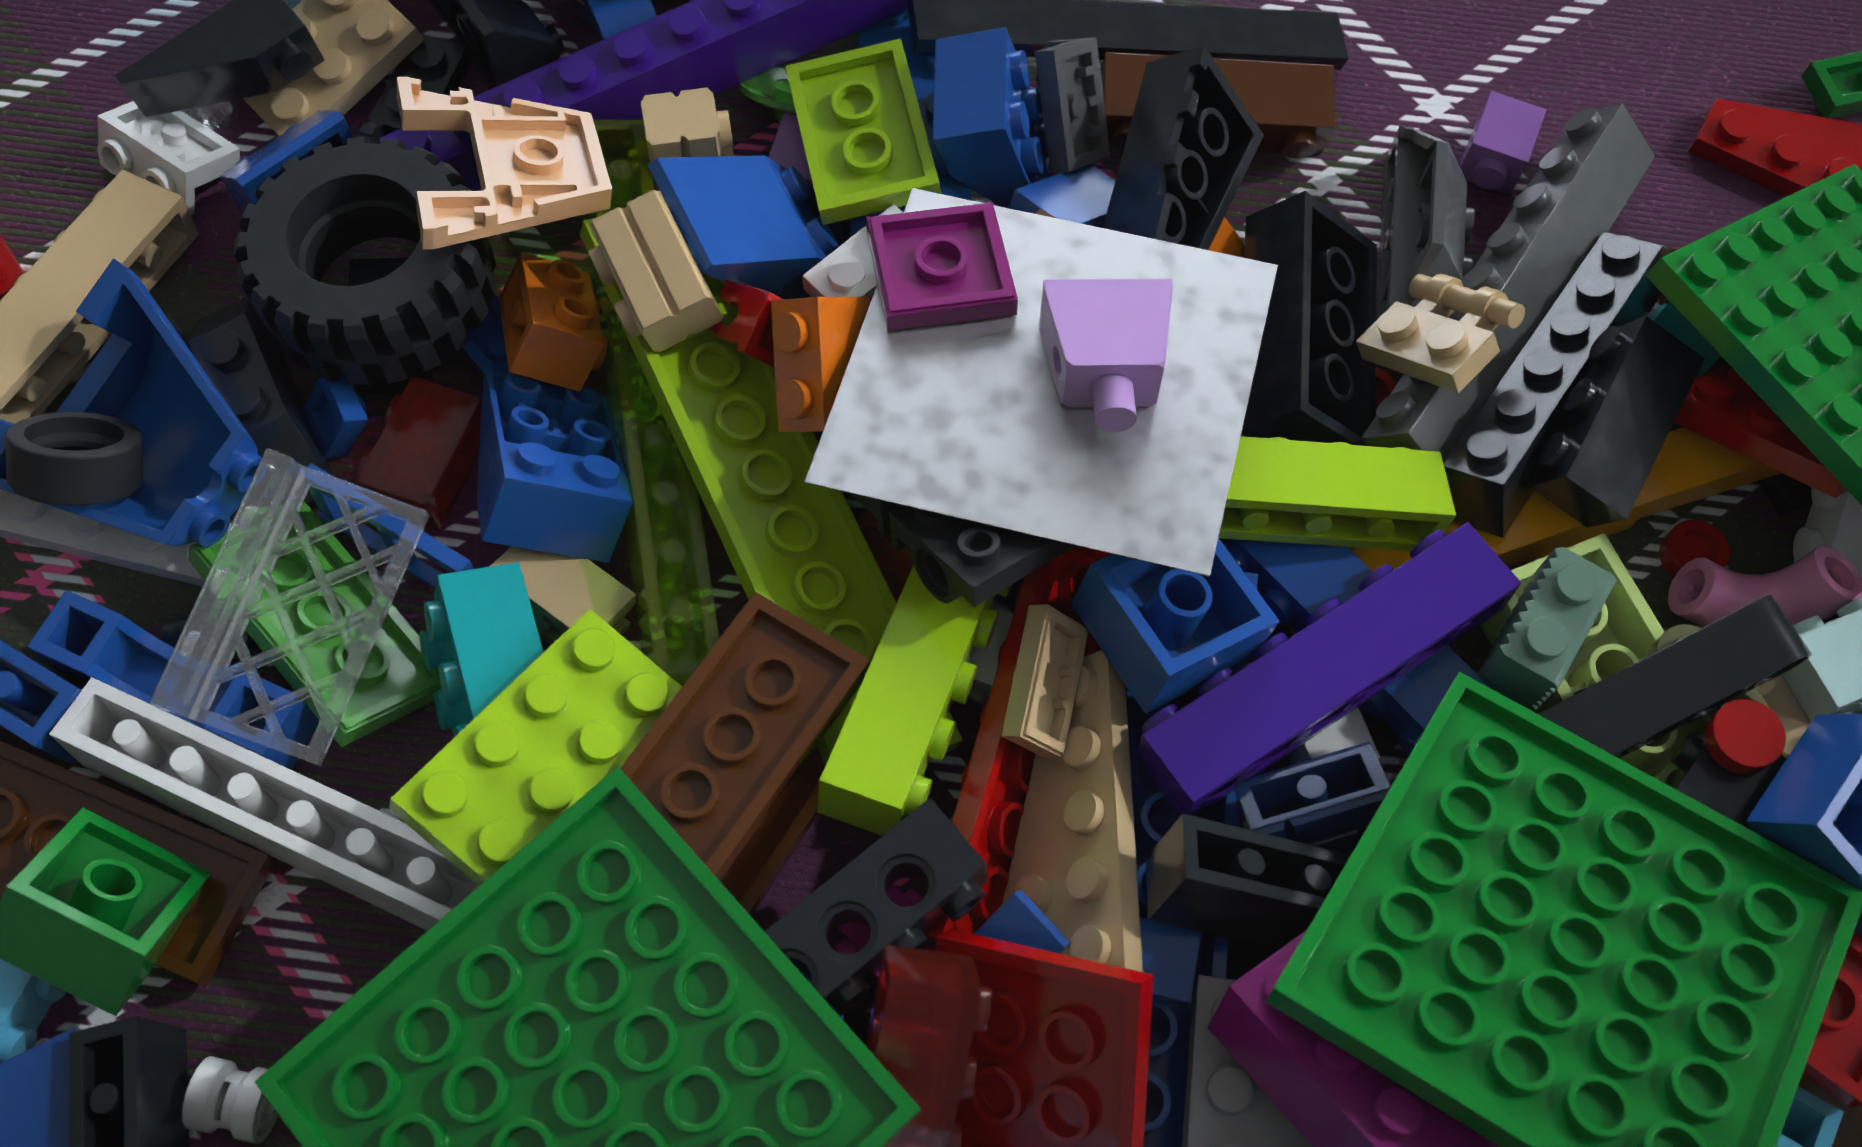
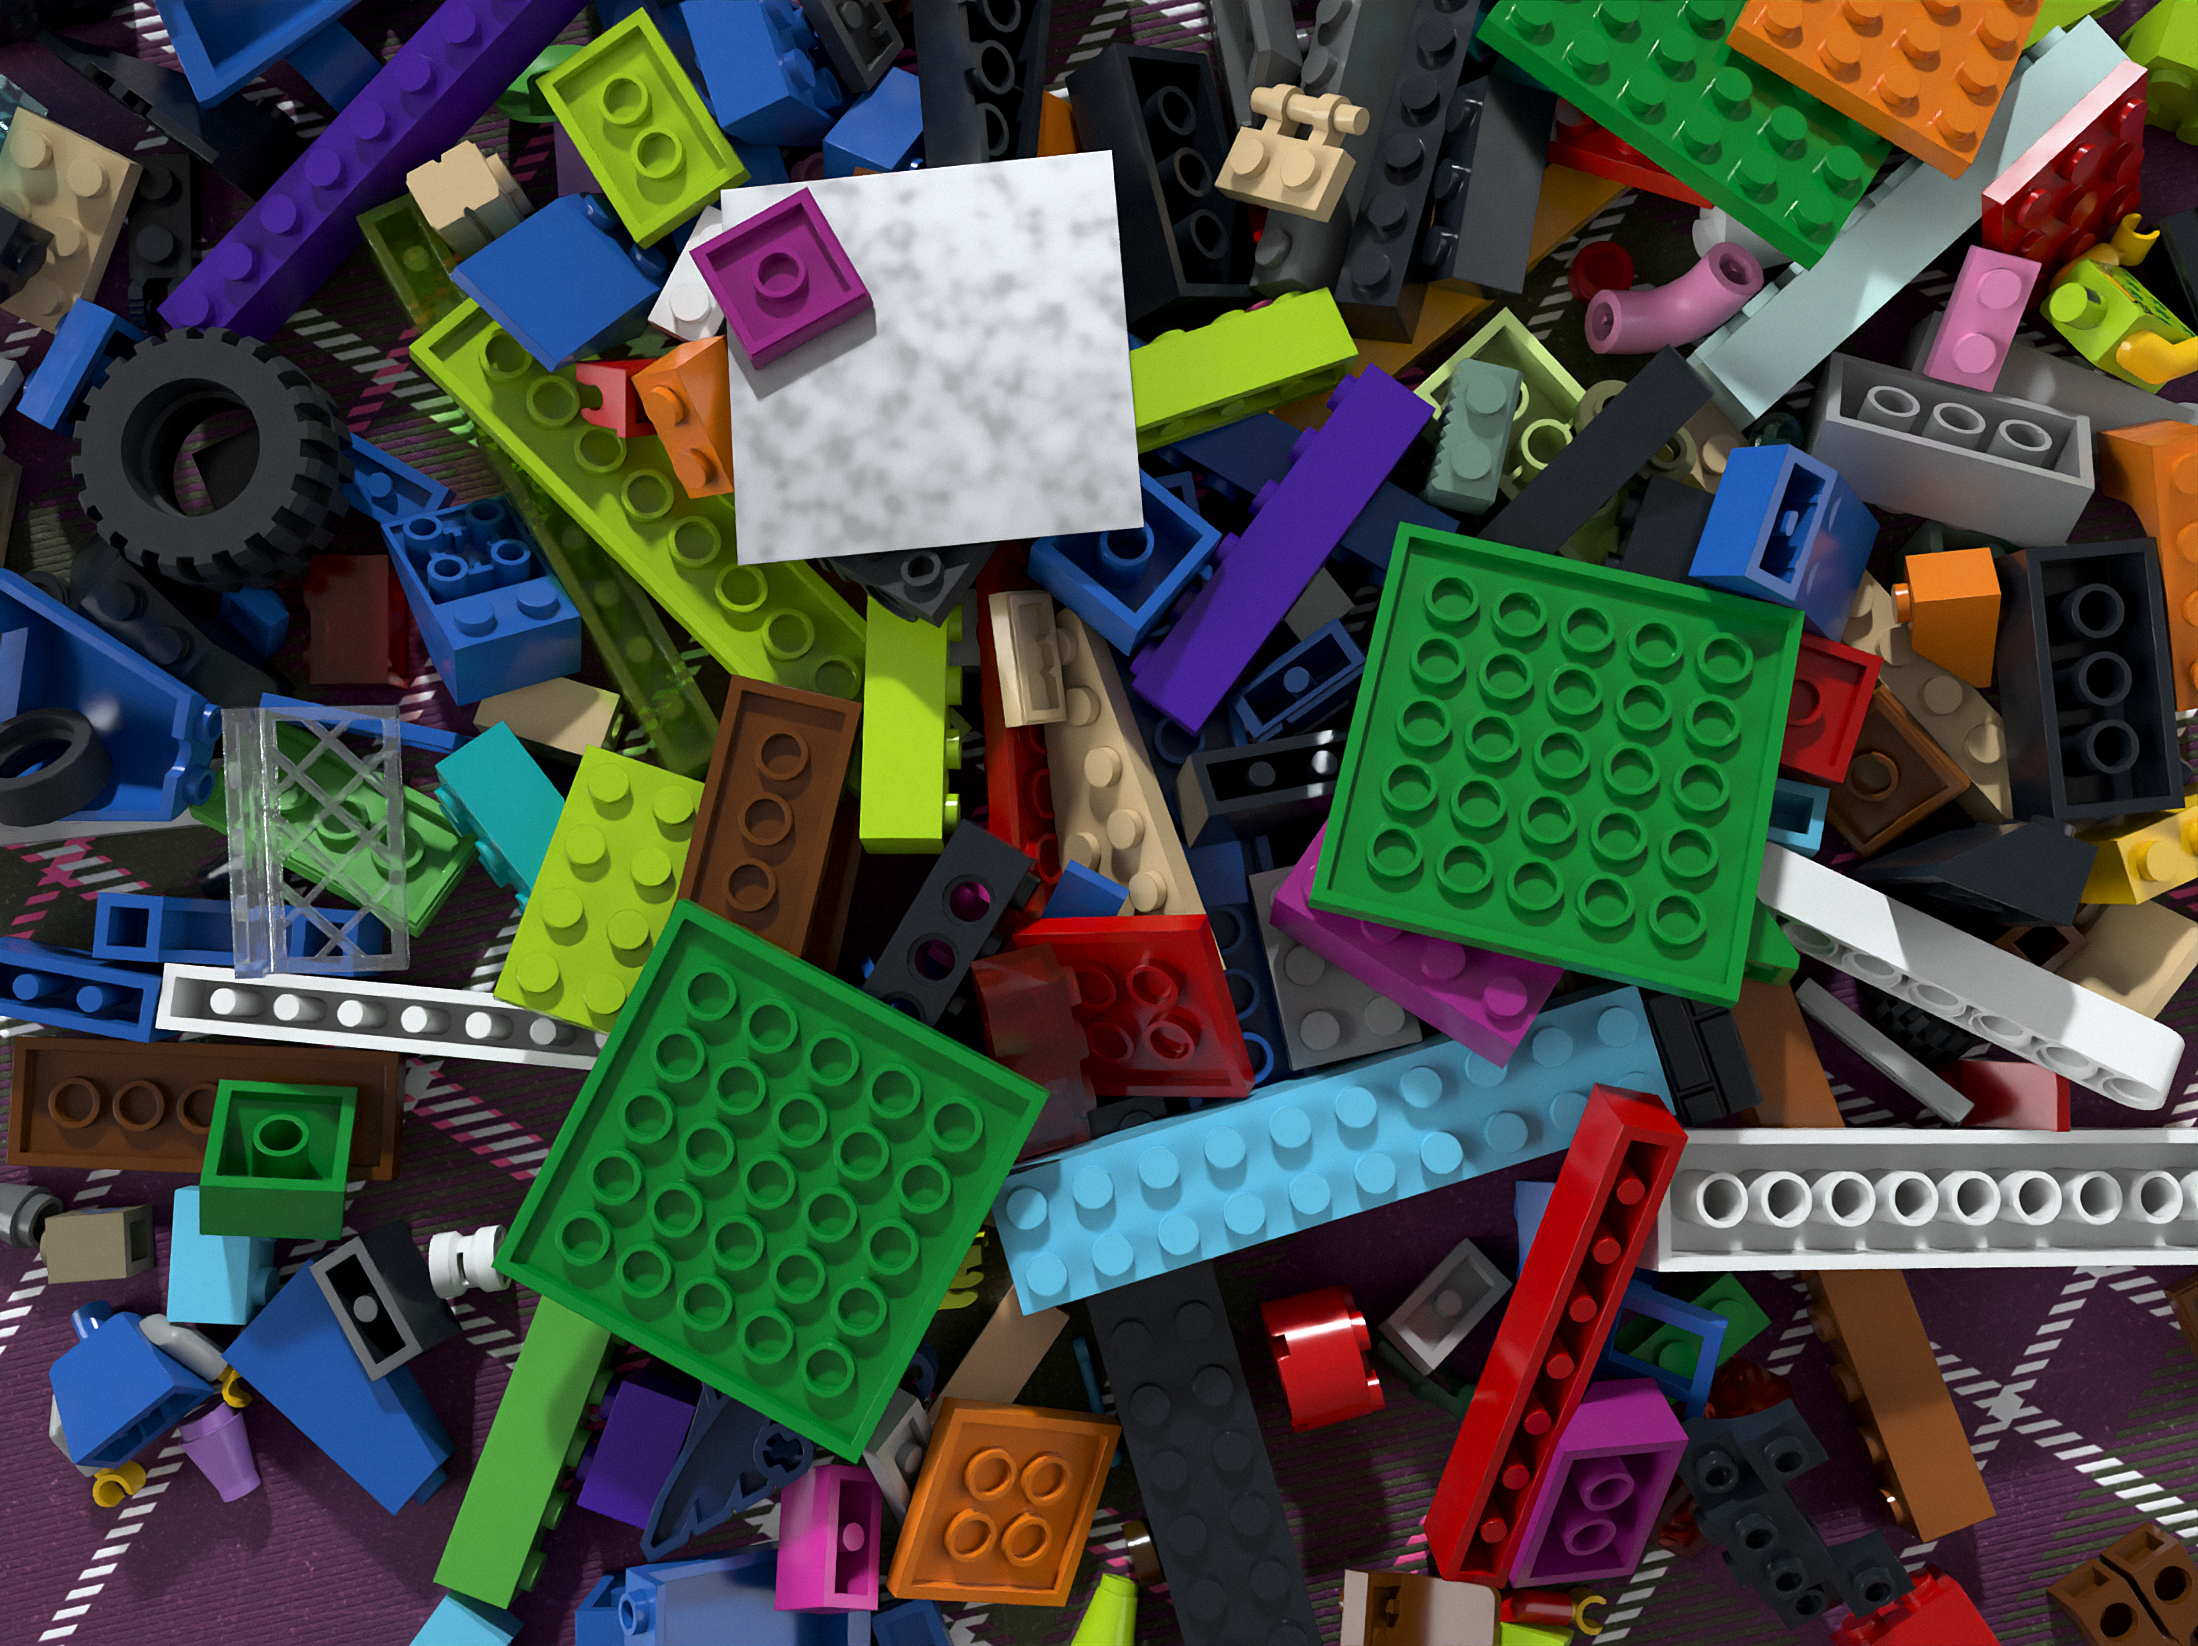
camera: 15 degrees left, 20 degrees up
(530, 160) = (329, 297): light nougat wing -> none
(551, 322) = (420, 449): orange brick -> none
(654, 272) = (503, 387): tan brick -> none
(1106, 344) = (973, 319): lavender torso -> none
(1744, 736) = (1672, 490): red tile -> none

